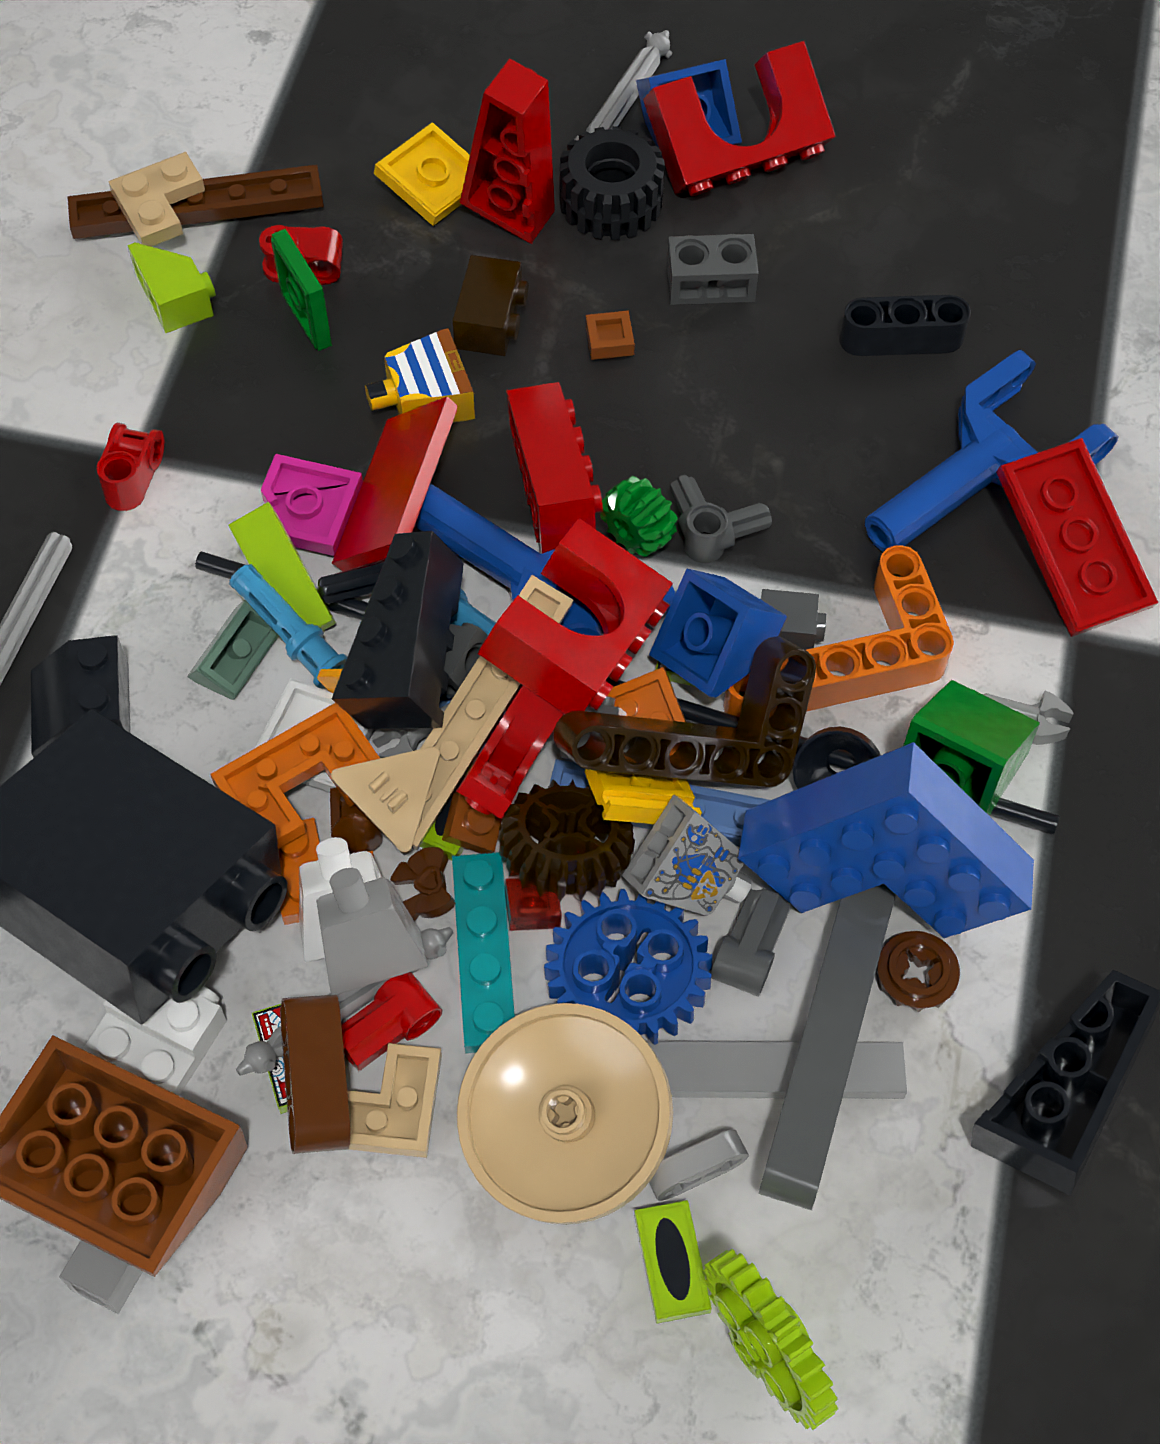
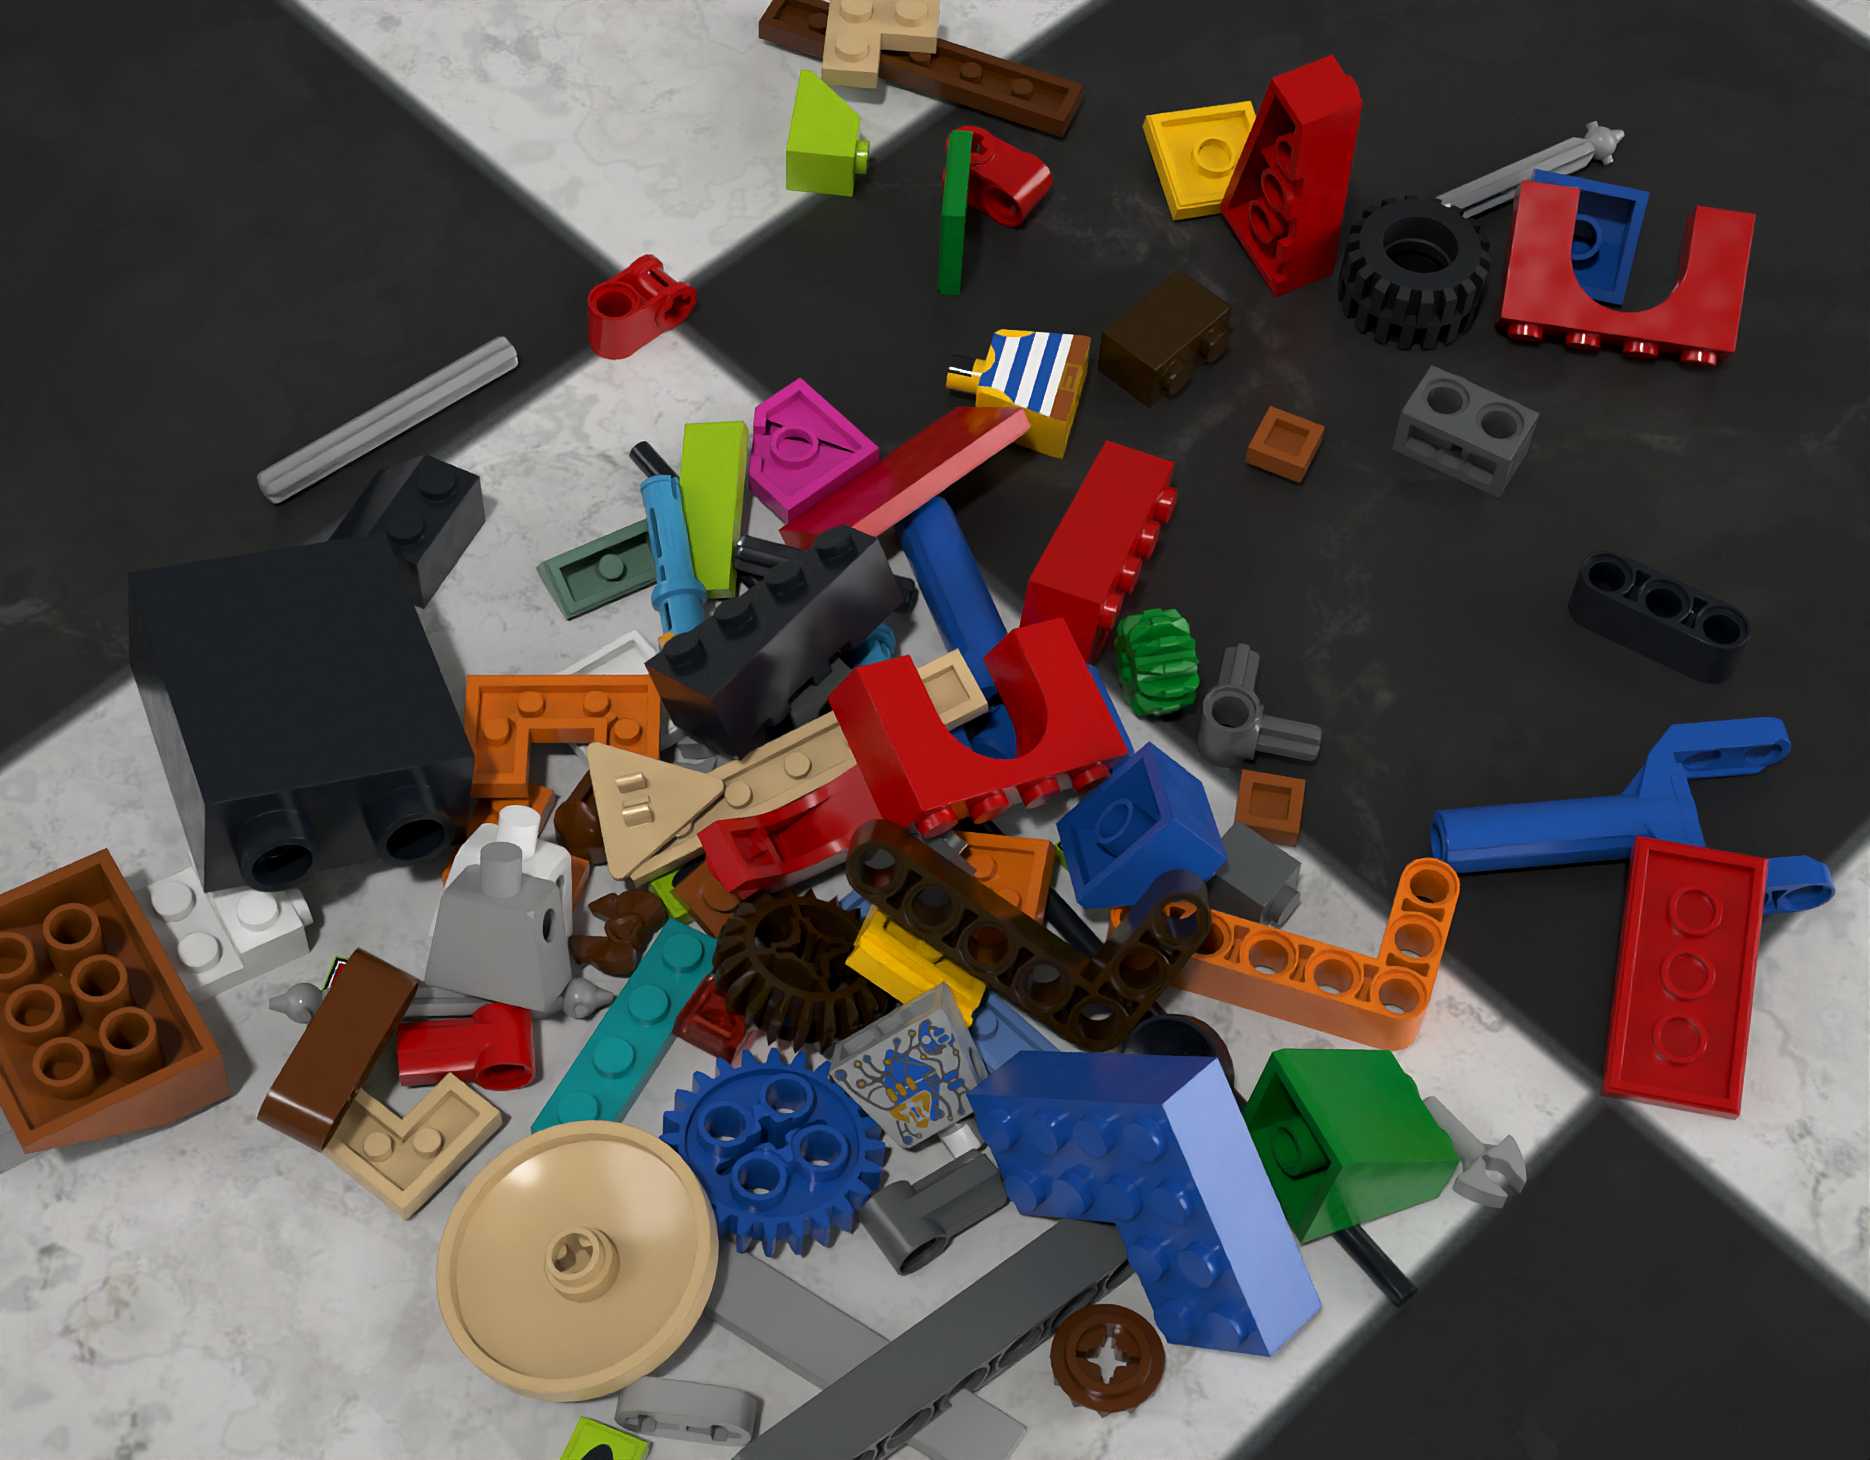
camera: 30 degrees right, 5 degrees down
(765, 569) = (1270, 805): none -> dark orange plate

